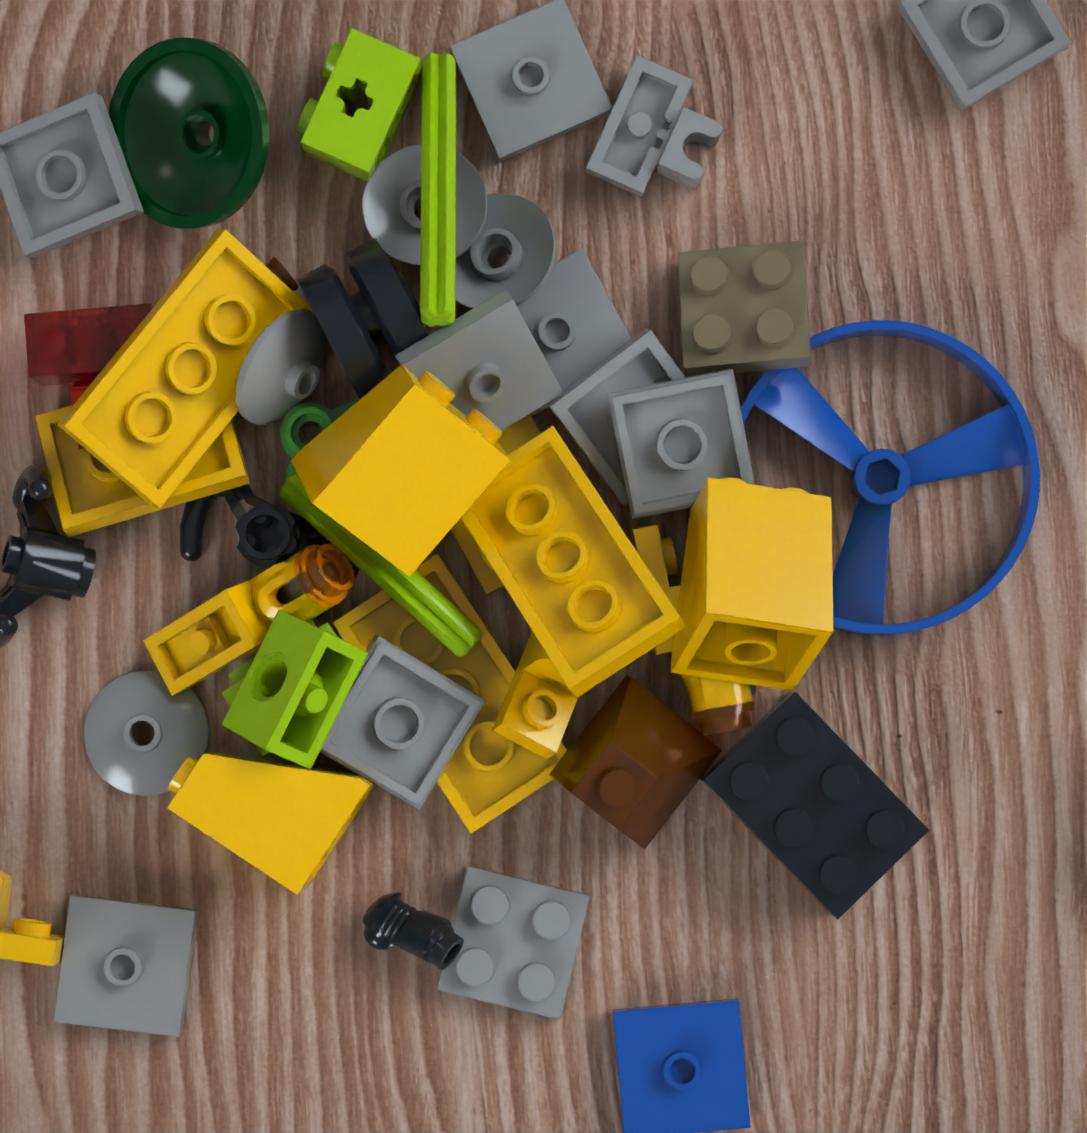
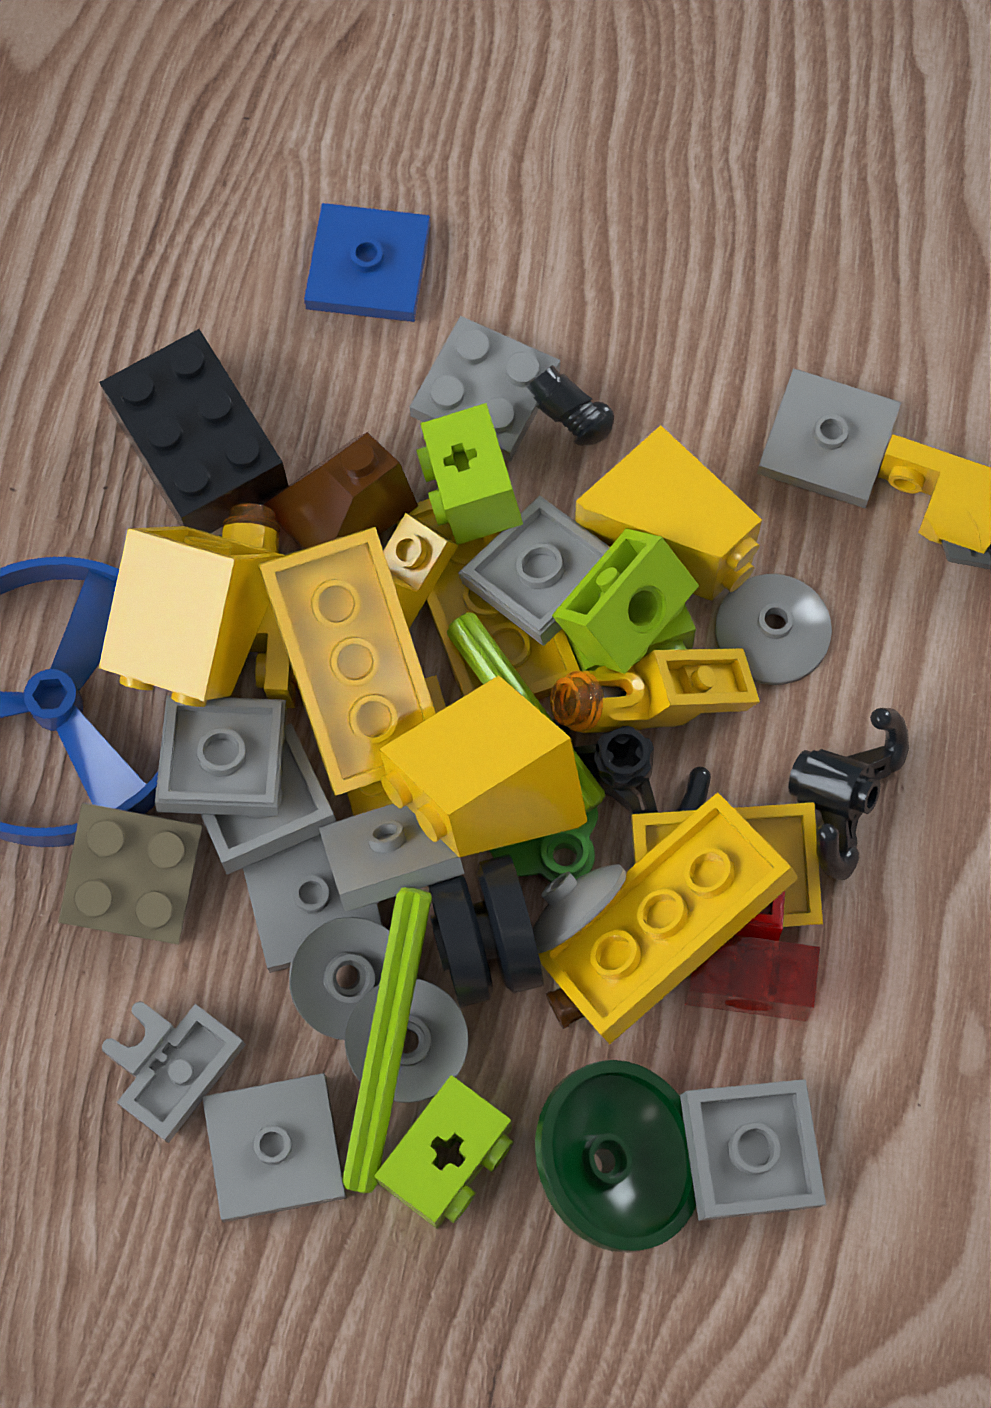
camera: 165 degrees left, 15 degrees down
(505, 847) = (470, 475): none -> lime brick

